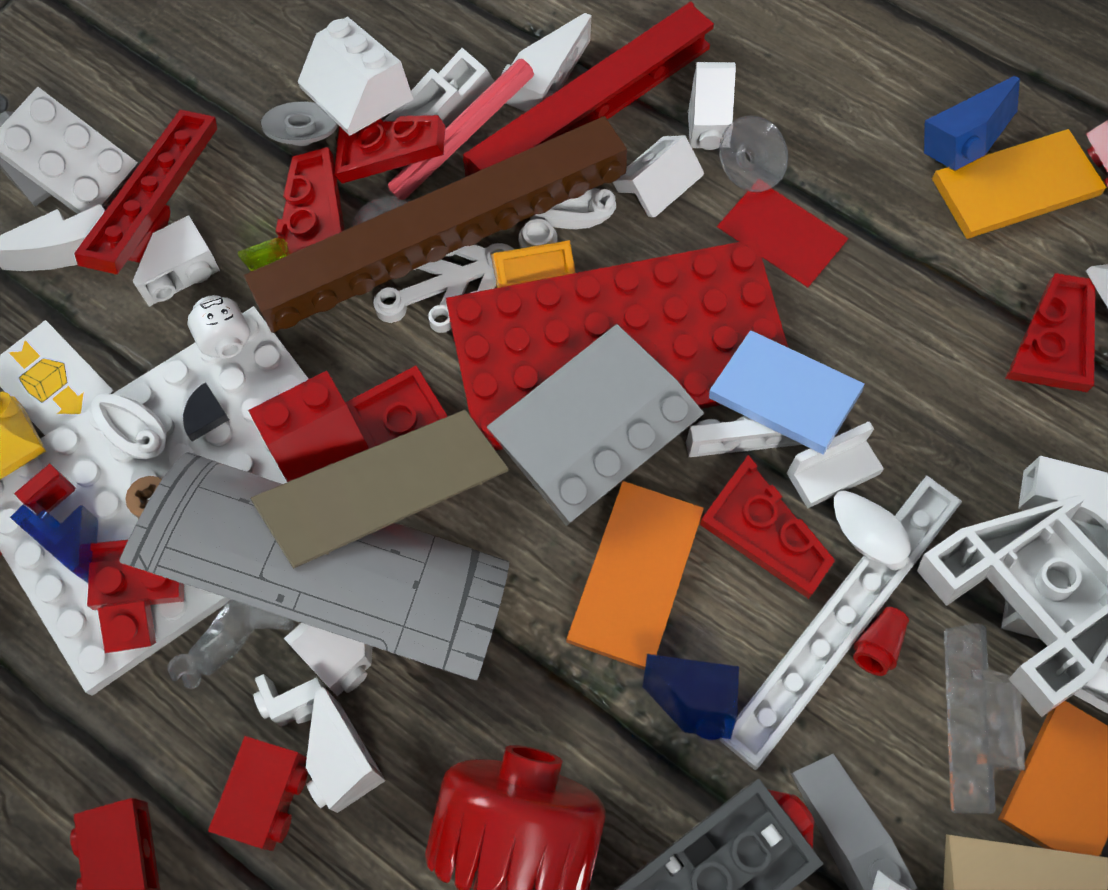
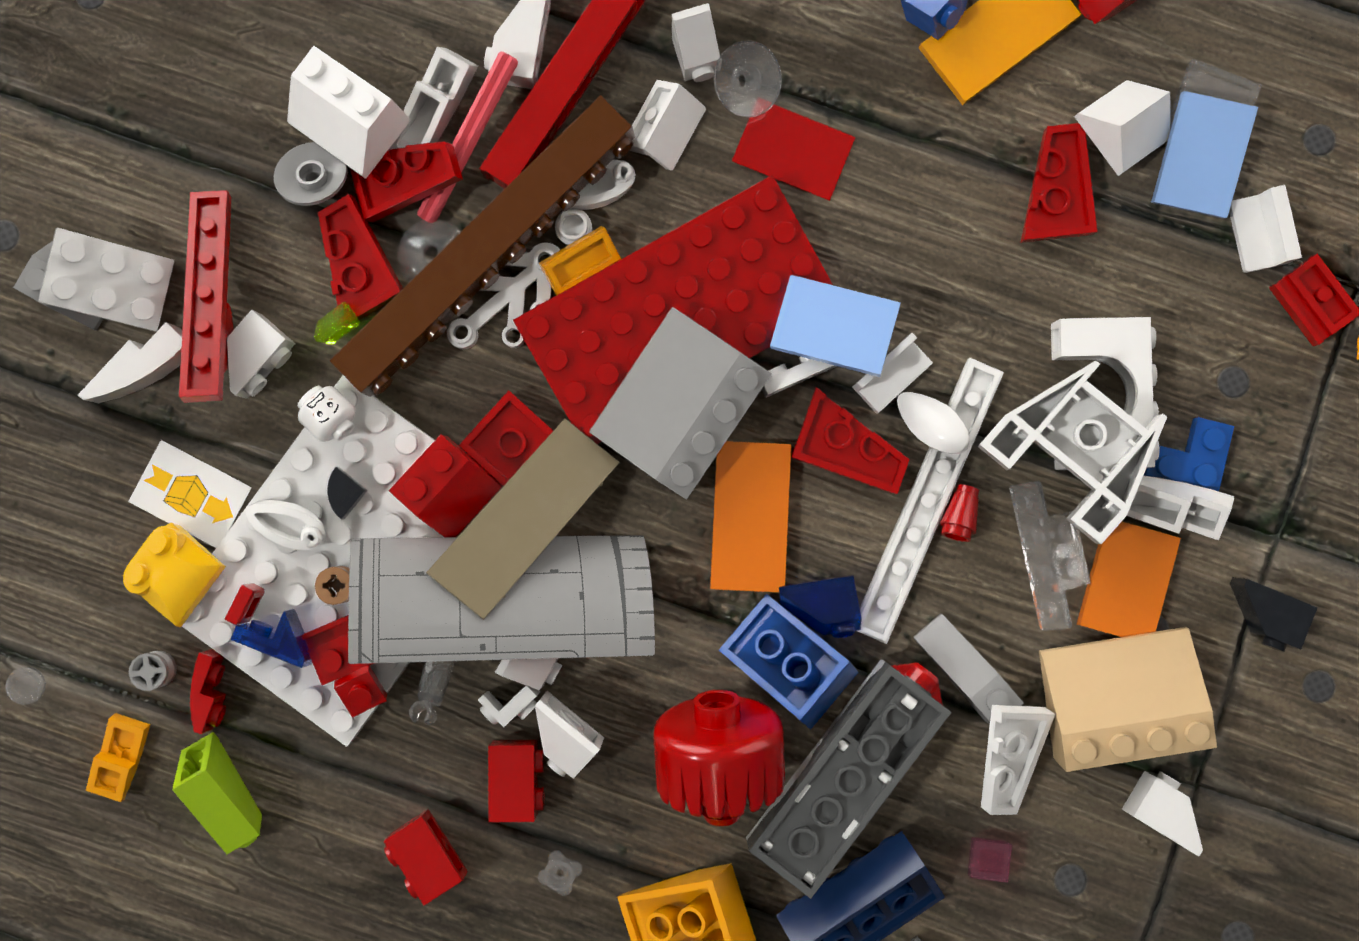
camera: 15 degrees left, 20 degrees up
(636, 754) = (789, 661): none -> blue slope

